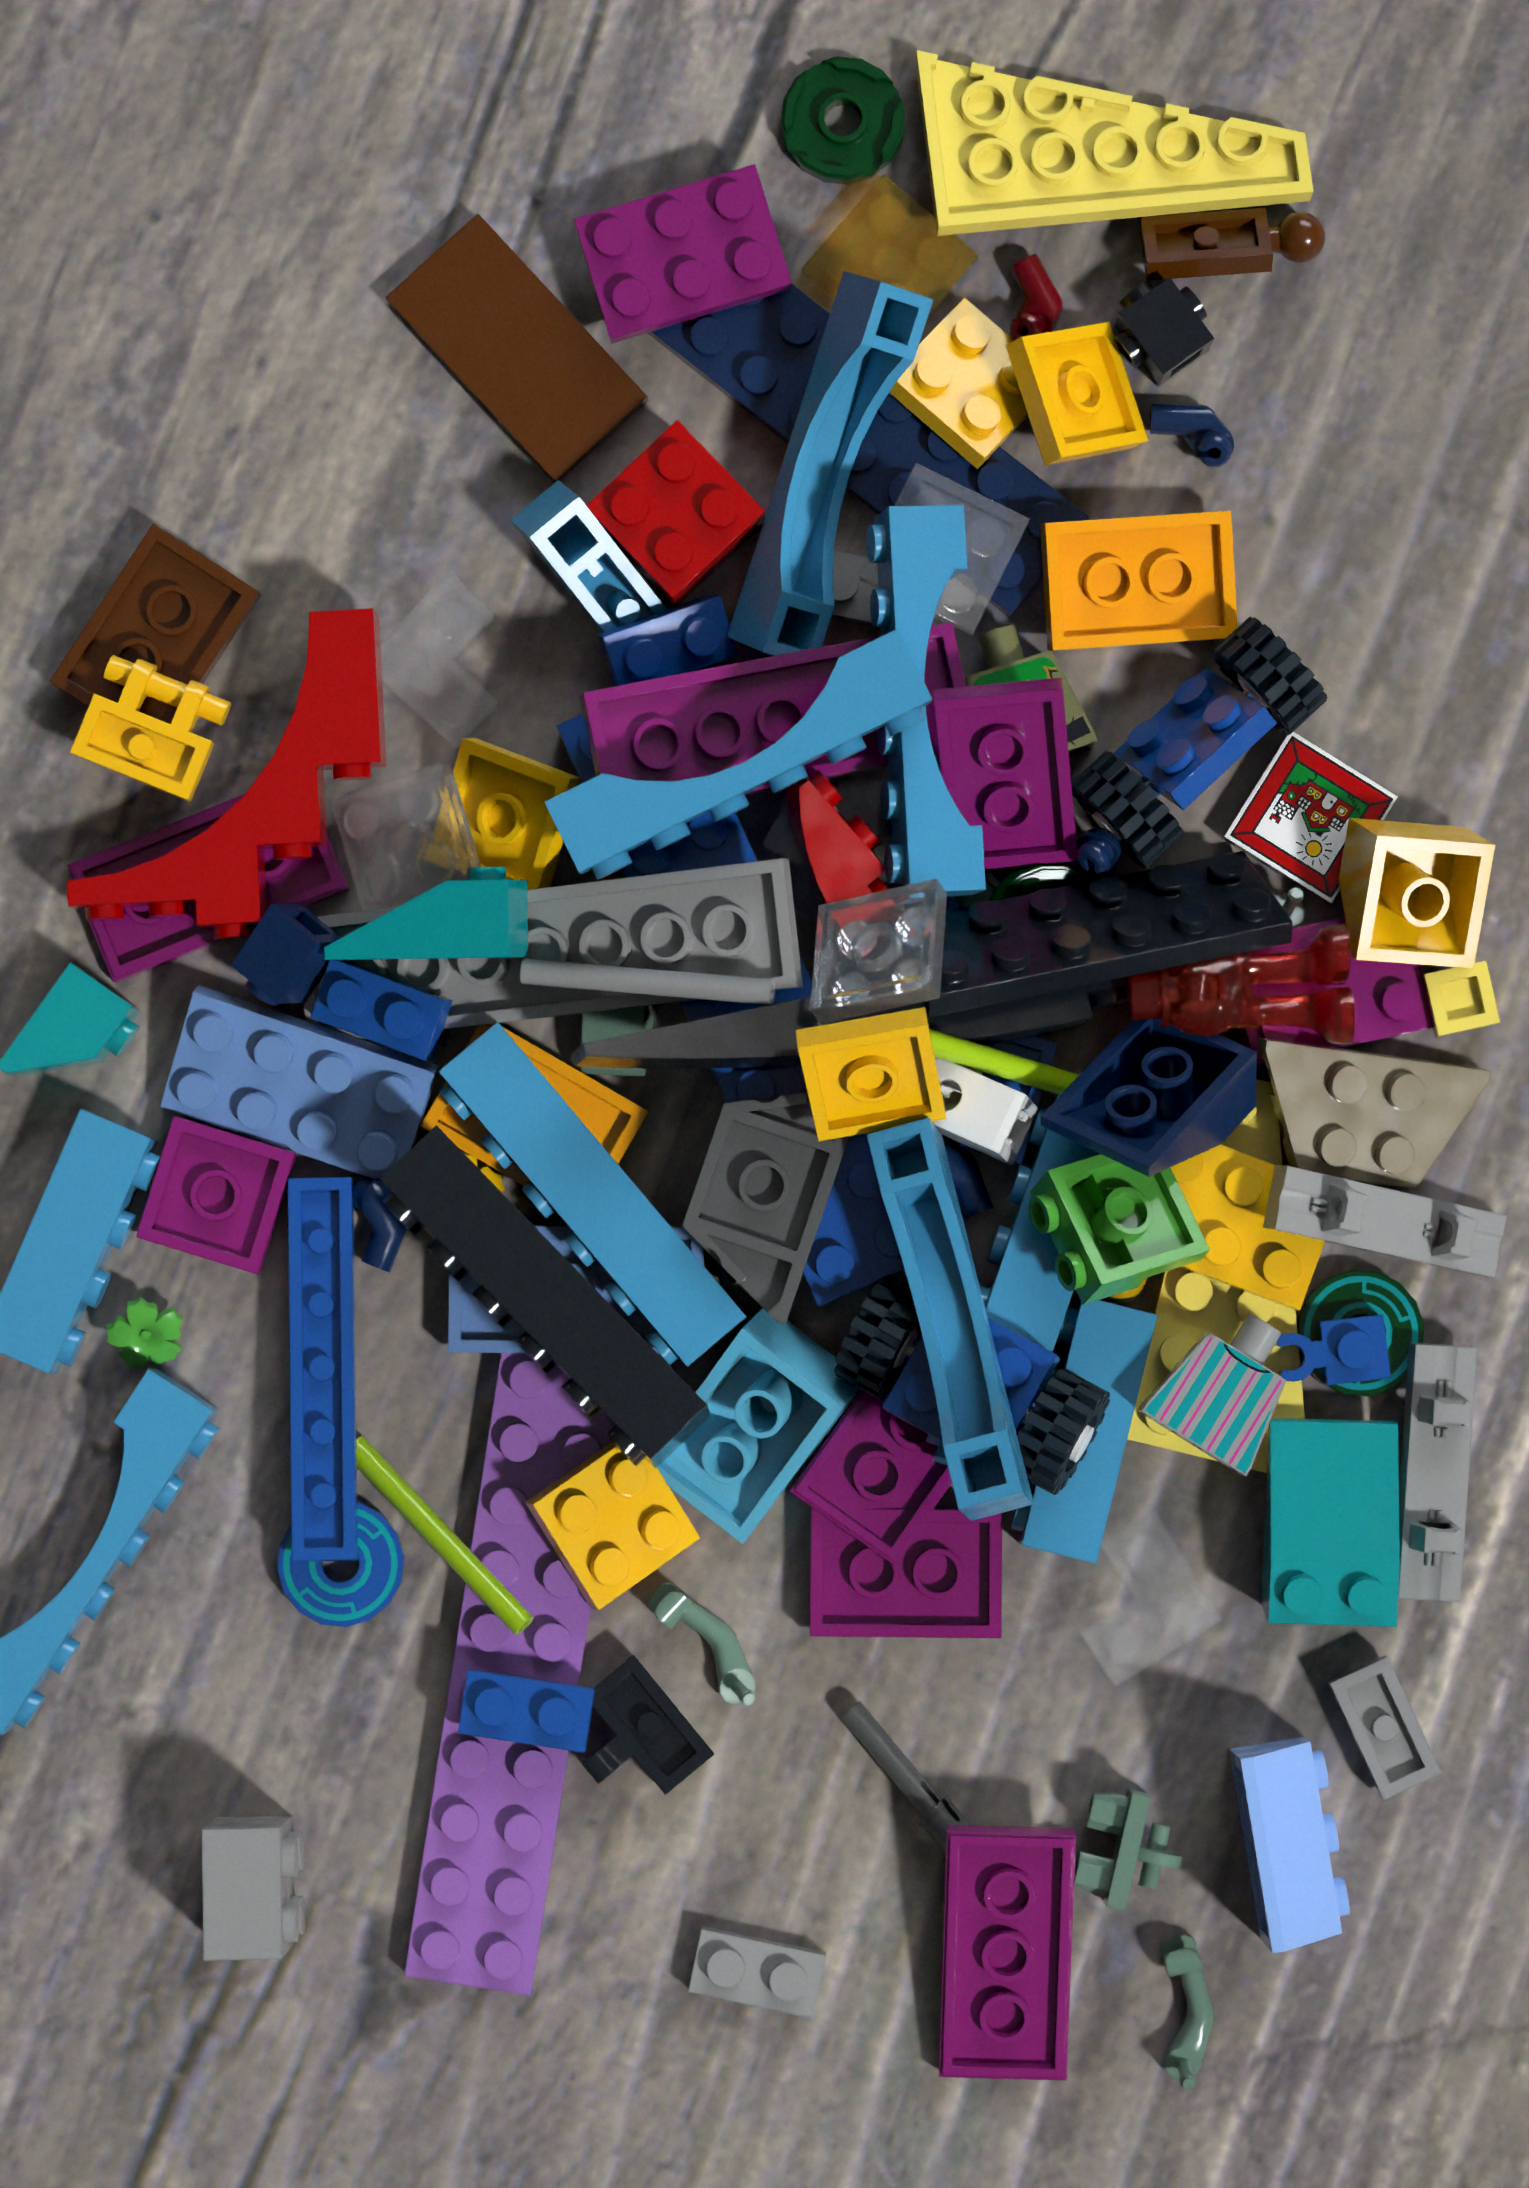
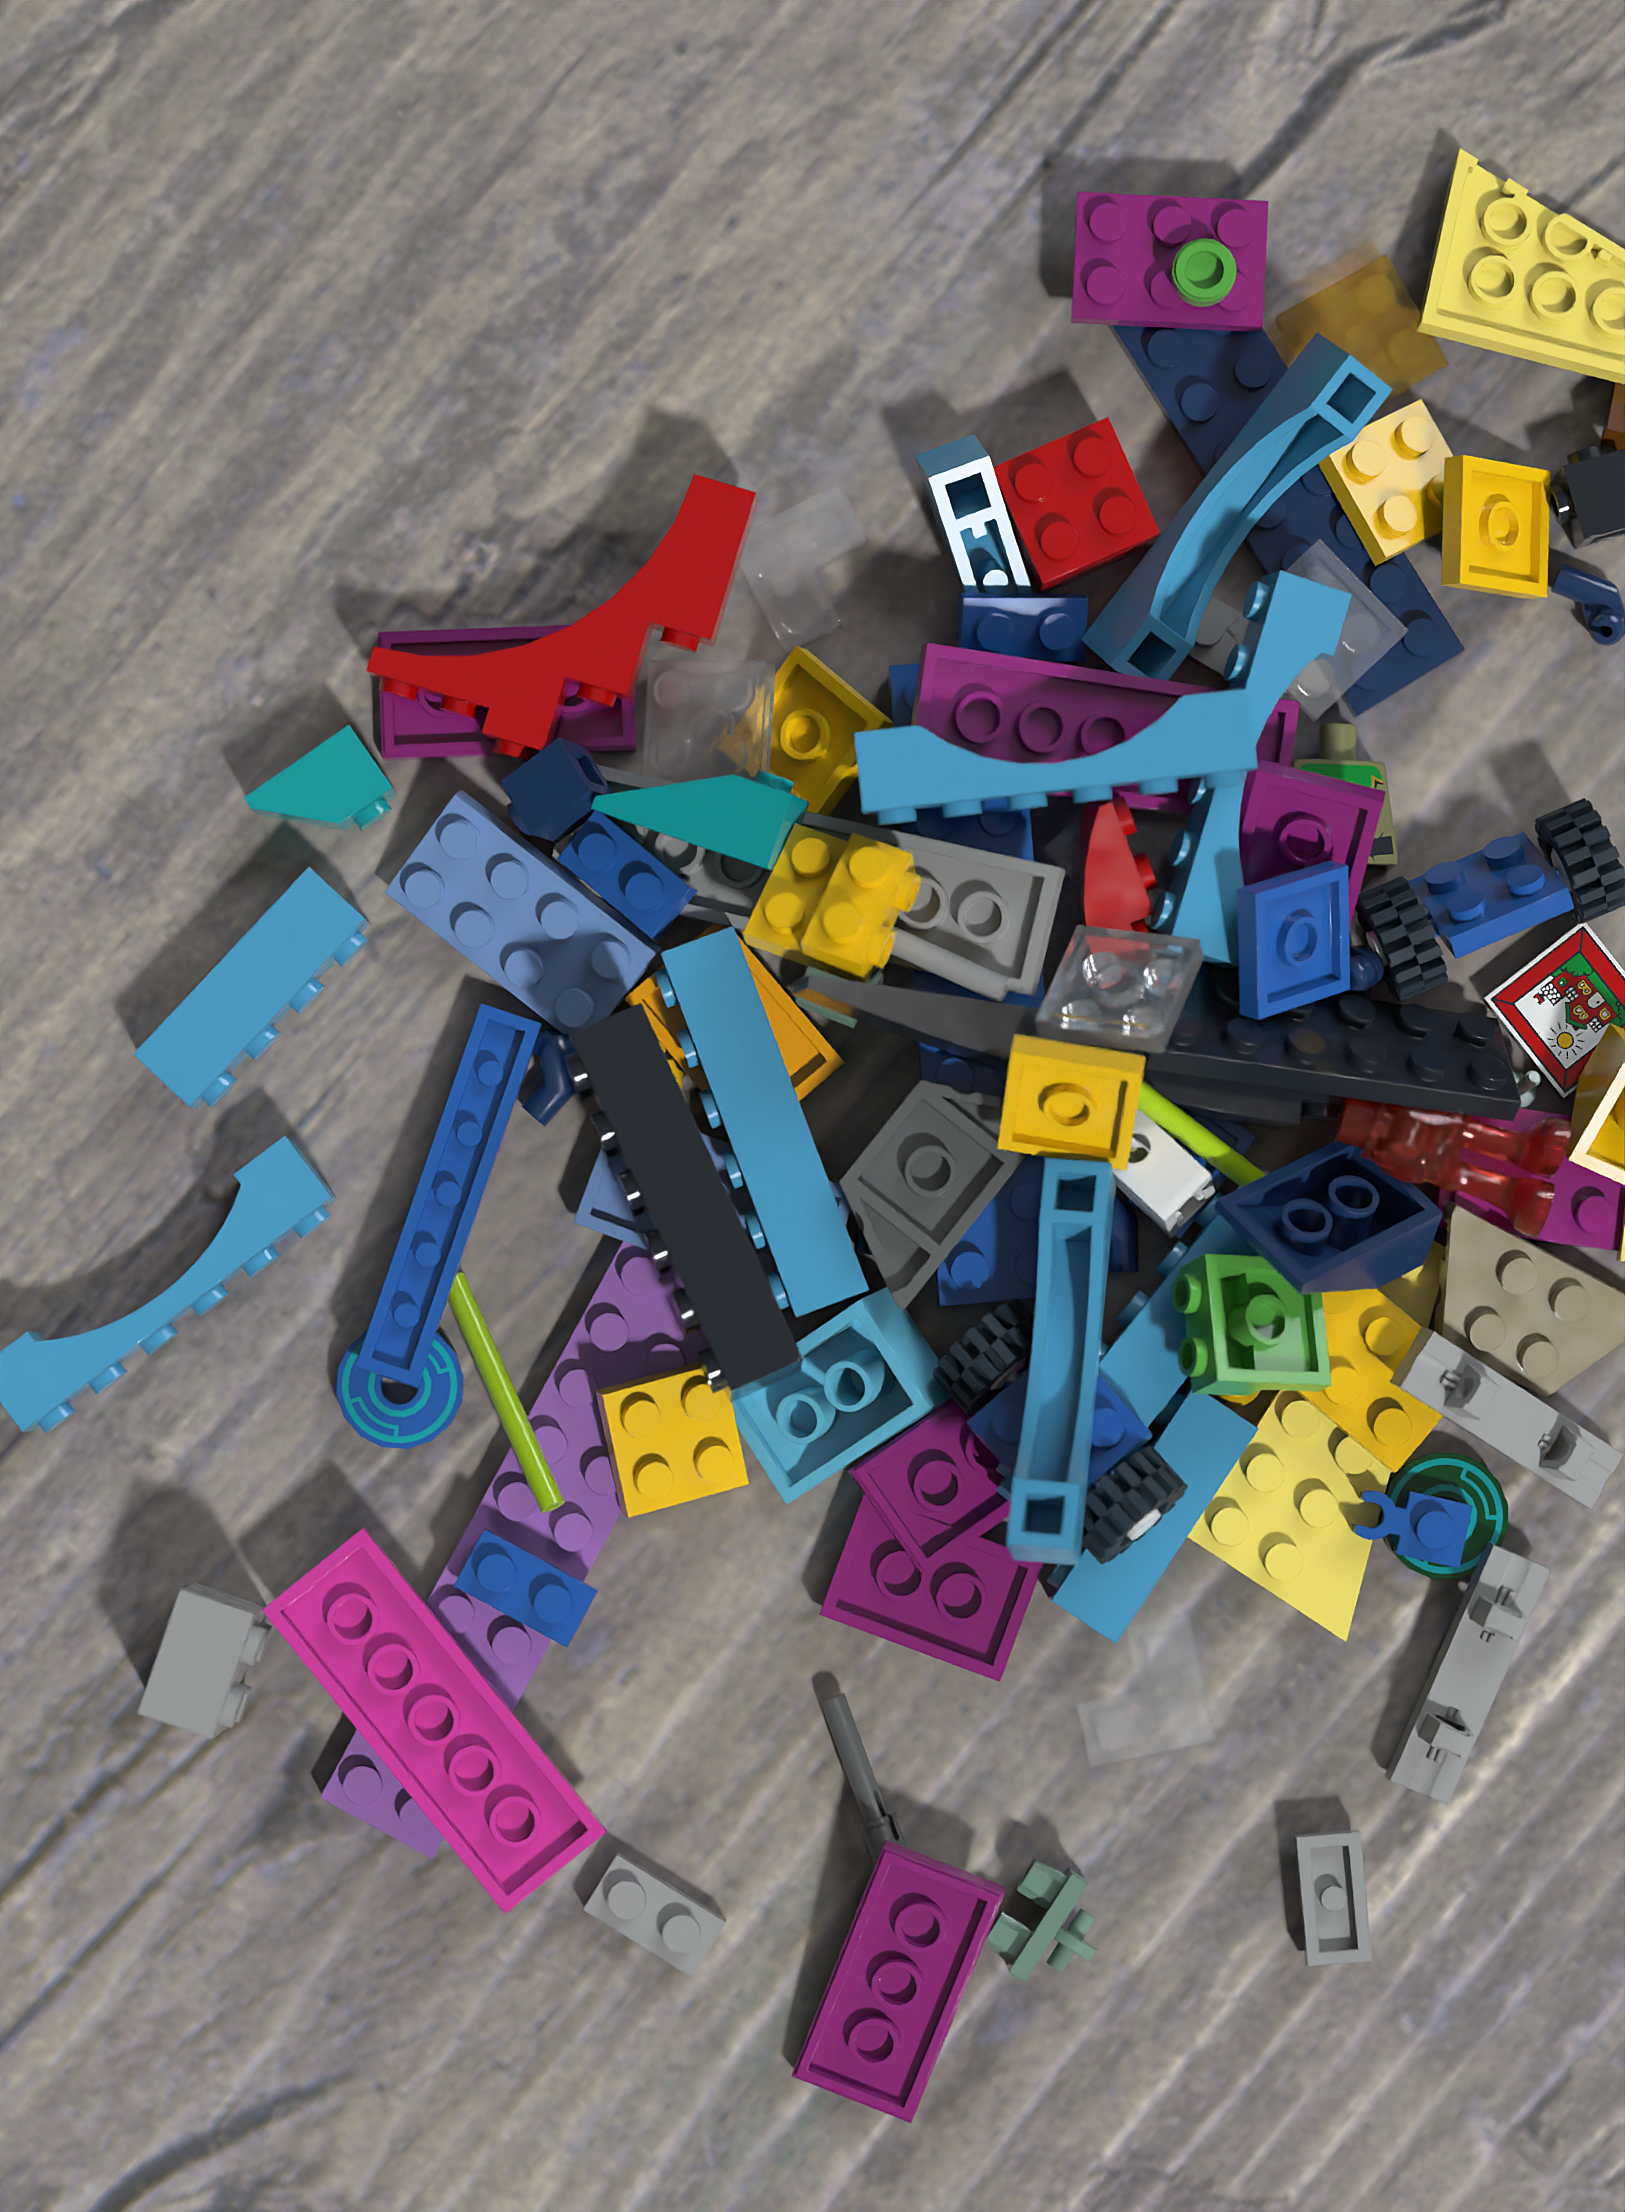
camera: 15 degrees right, 0 degrees up
(144, 746) = (494, 547): yellow plate -> none
(145, 1333) = (293, 1102): bright green plant -> none
(164, 609) = (538, 447): reddish brown plate -> none
(216, 1195) = (407, 995): magenta plate -> none
(485, 1865) = (434, 1720): none -> dark pink plate
(516, 348) = (978, 295): reddish brown tile -> none
(583, 967) = (834, 903): none -> yellow plate
(646, 1728) = (631, 1644): black plate -> none
(717, 253) = (1203, 272): none -> bright green tile
(733, 1673) = (733, 1621): sand green piece -> none
(834, 156) = (1358, 226): dark green tile -> none
(1025, 846) = (1293, 939): none -> blue plate
(1041, 302) = (1492, 429): dark red arm -> none
(1138, 580) = (1490, 726): light orange plate -> none
(1189, 2045) = (1039, 2132): sand green piece -> none
(1221, 1395) = (1292, 1527): torso -> none
(1288, 1842) = (1203, 1974): light blue slope -> none
(1331, 1523) = (1353, 1686): teal slope -> none

